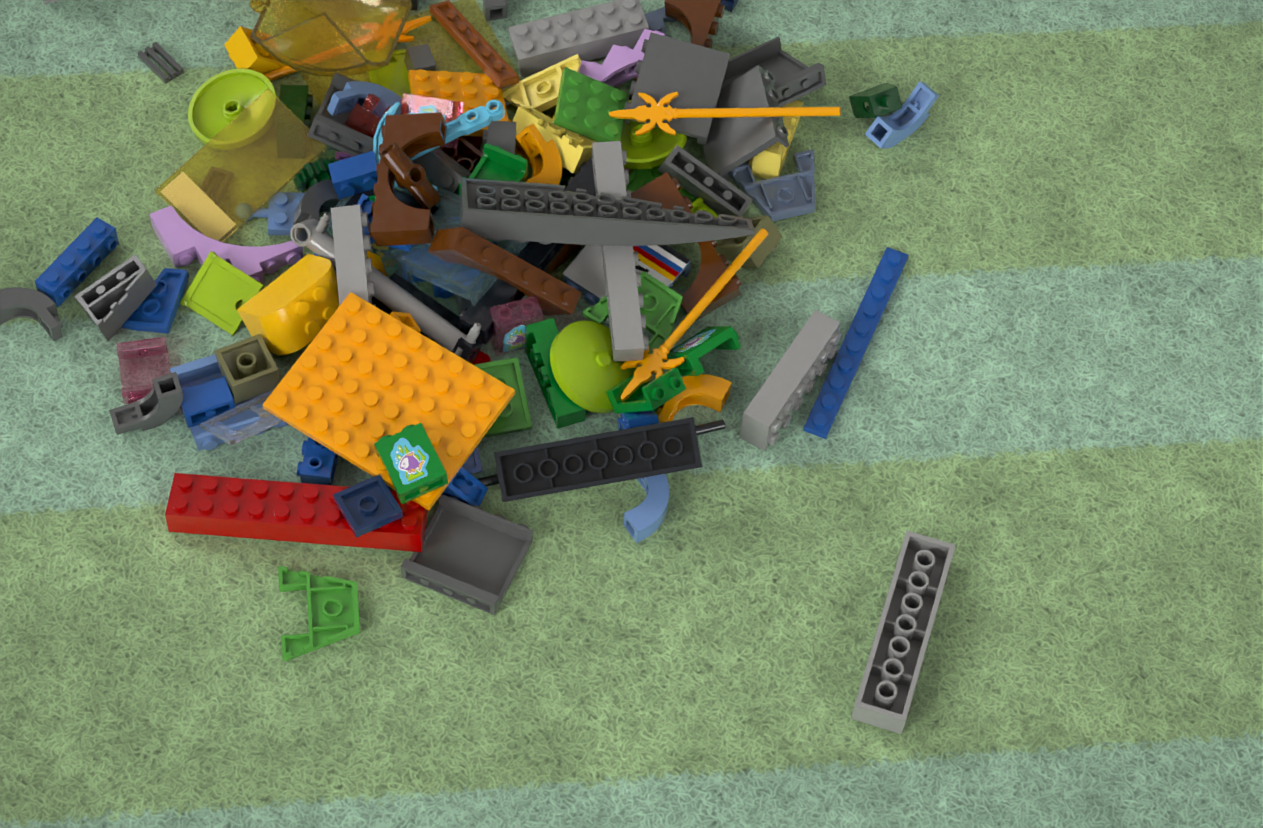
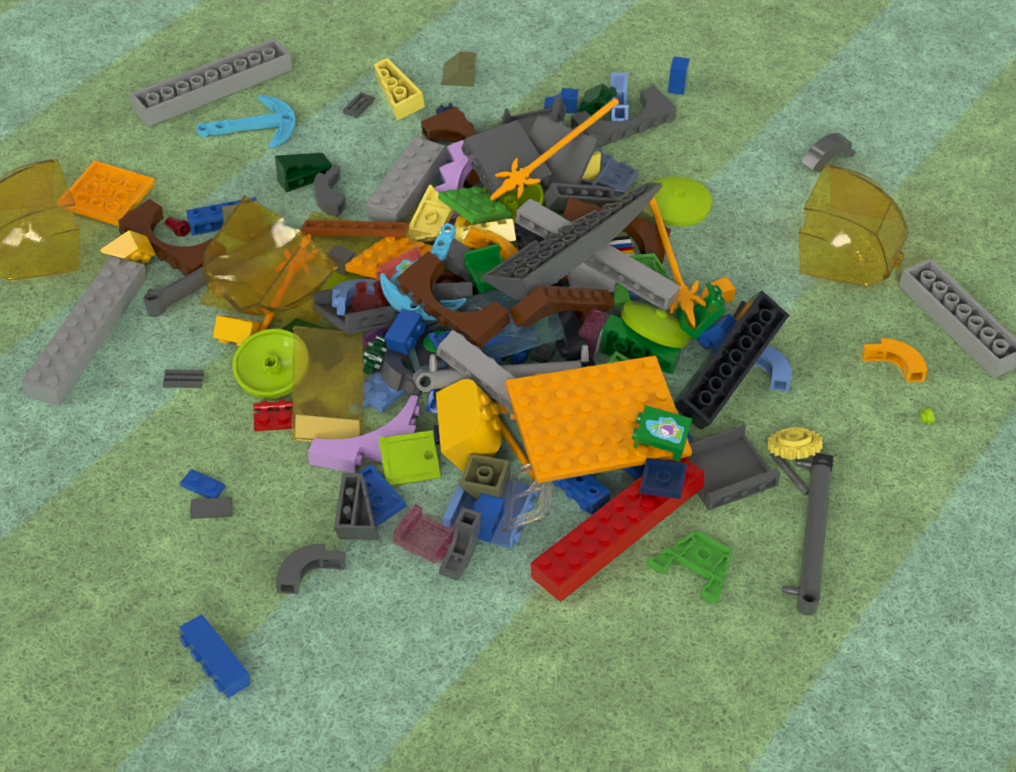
camera: 45 degrees left, 10 degrees down
(30, 194) = (211, 508): none -> dark grey tile
(50, 169) = (202, 484): none -> blue plate
(77, 261) = (299, 511): blue brick -> none
(172, 157) = (272, 420): none -> red plate
(410, 176) = (452, 297): reddish brown piece -> none
(520, 614) = (790, 473): none -> dark grey bar
(546, 638) = (814, 537): none -> dark grey piece
(553, 591) = (795, 443): none -> light yellow gear
(701, 343) = (693, 268): green panel -> none
(722, 686) = (927, 416): none -> lime plate
(784, 627) = (899, 353): none -> light orange arch
(790, 380) = (751, 251): light grey brick -> none
(814, 269) = (682, 201): none -> lime dish
(850, 76) = (569, 98): none -> blue arch
(855, 343) = (746, 218): blue plate -> none
(914, 440) = (851, 229): none -> clear yellow windscreen
(927, 161) = (656, 112): none -> dark grey arch
(1000, 141) = (678, 75): none -> blue brick
(1037, 344) = (826, 149): none -> dark grey arch

